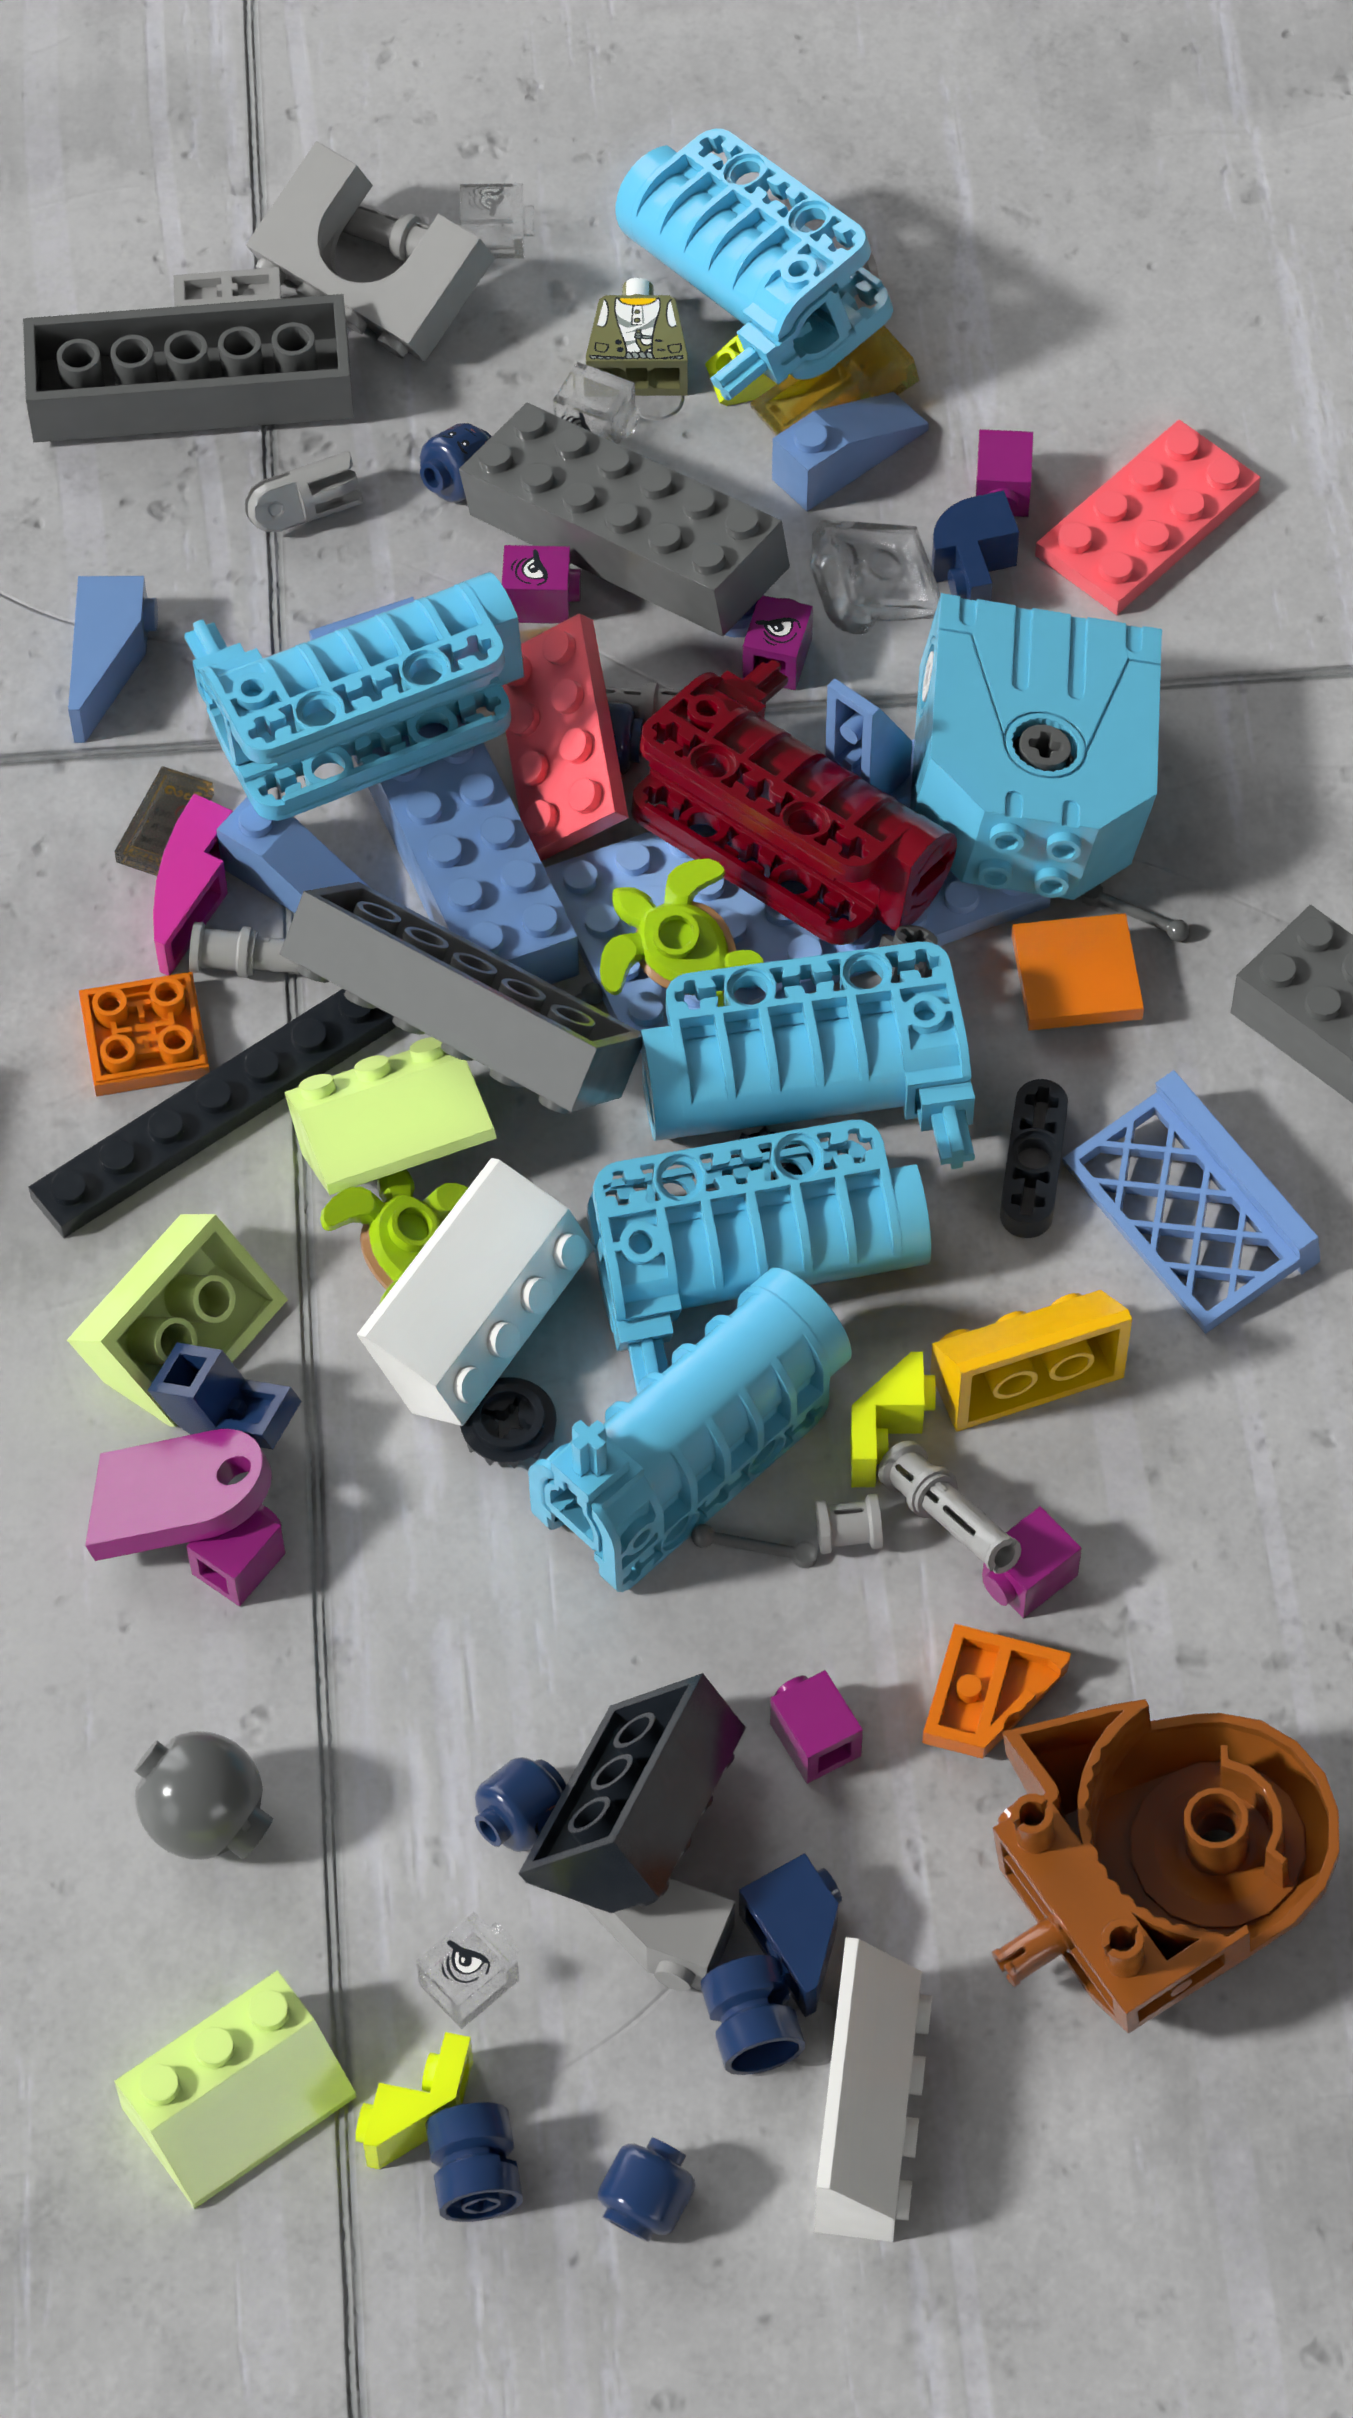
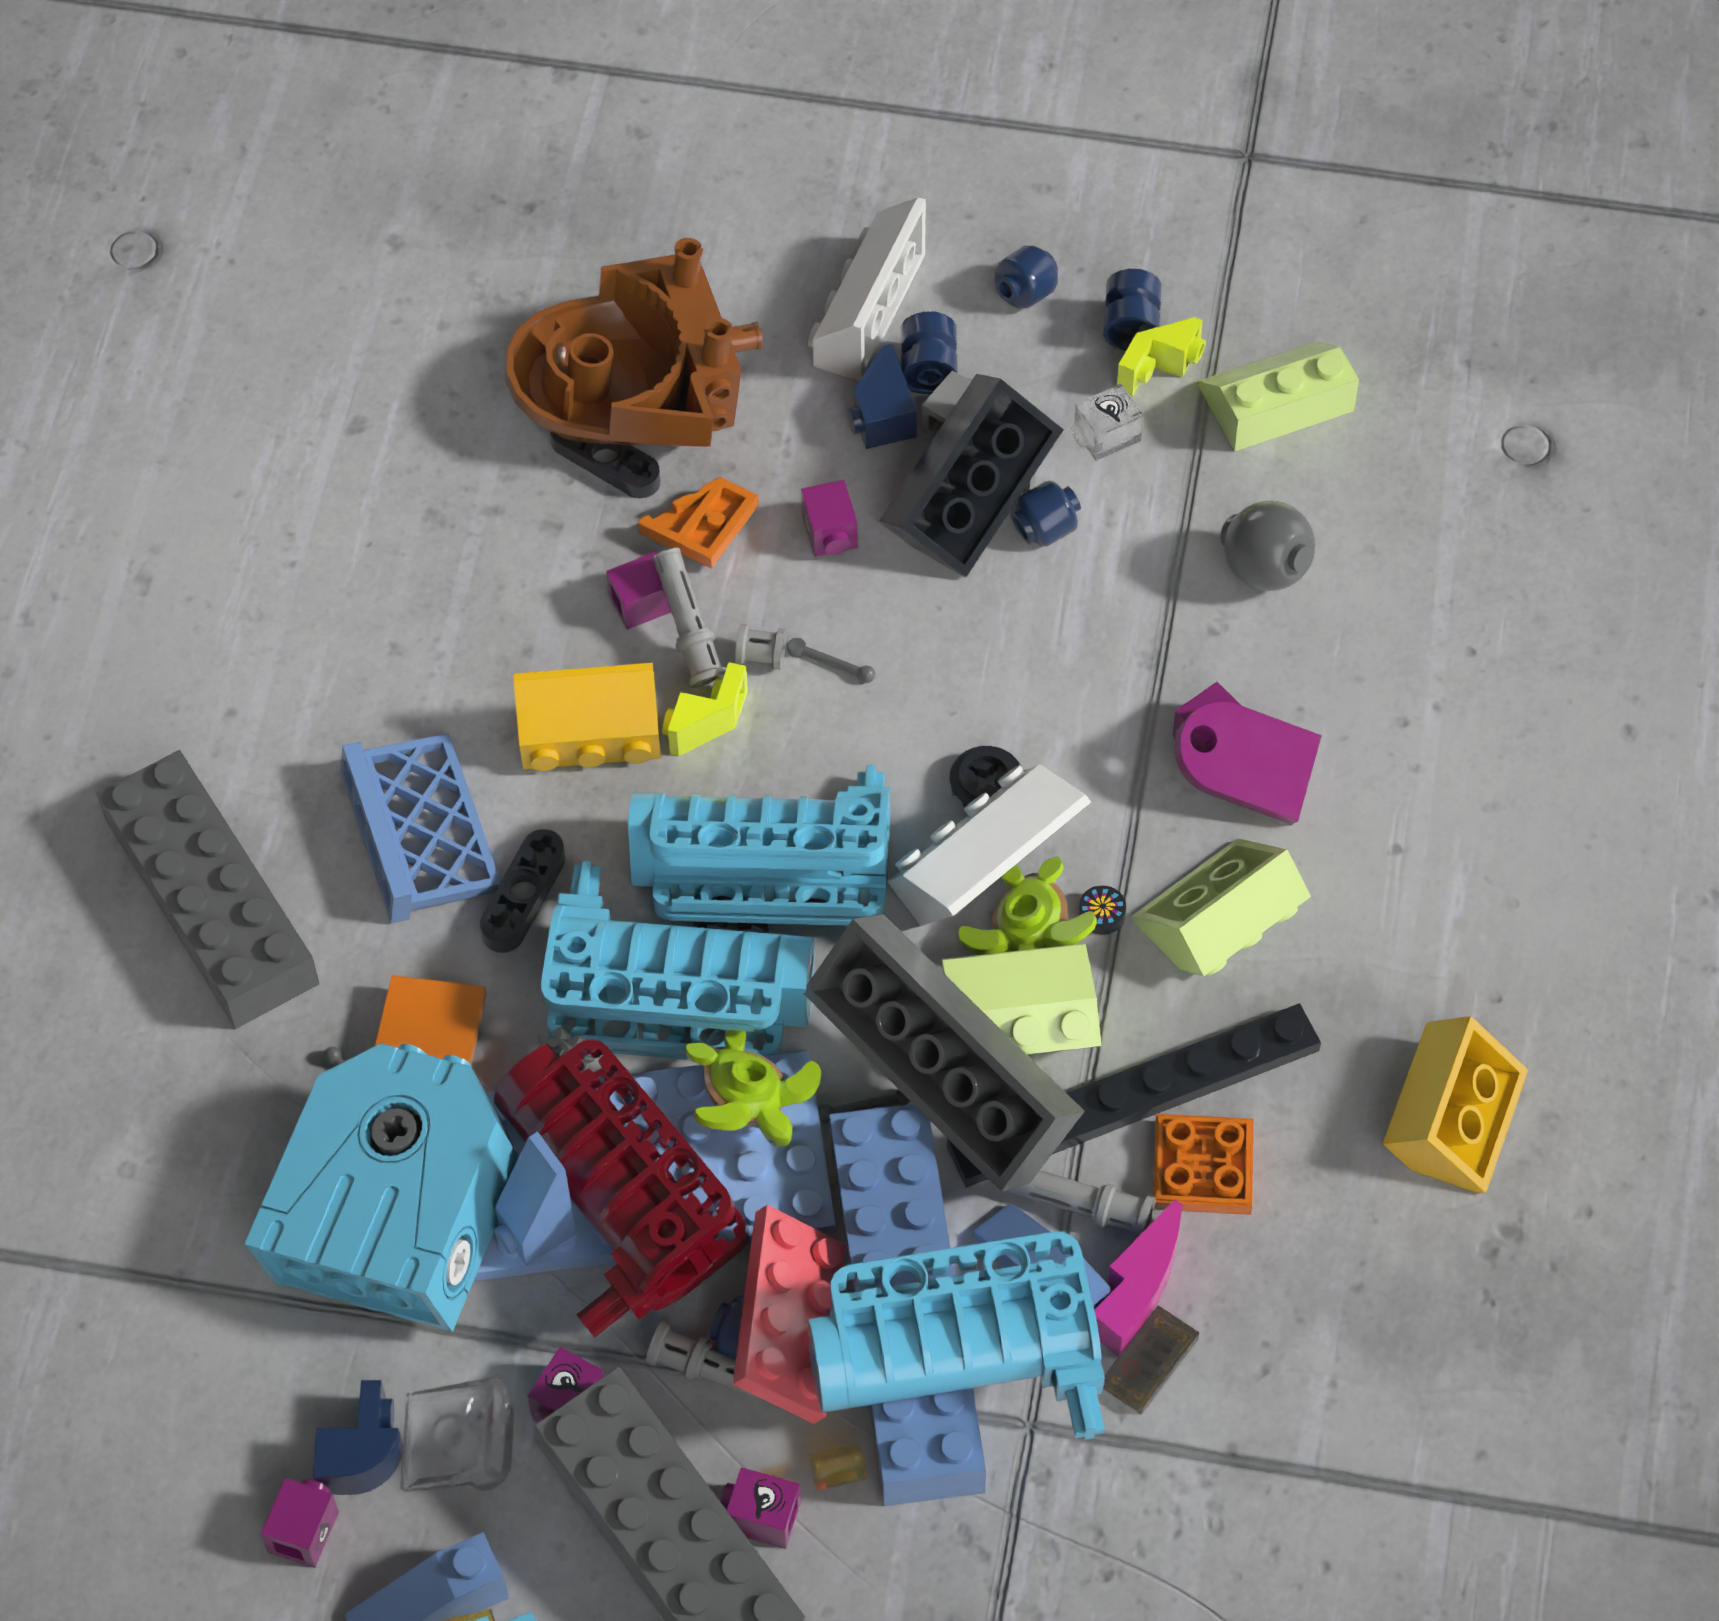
camera: 165 degrees left, 0 degrees up
(107, 644) = (1166, 1544): medium blue slope -> none
(208, 1393) = (1197, 826): dark blue brick -> none
(324, 1294) = (1106, 905): none -> tile
(695, 1429) = (866, 706): medium azure piece -> none
(1147, 516) = (186, 1459): coral plate -> none

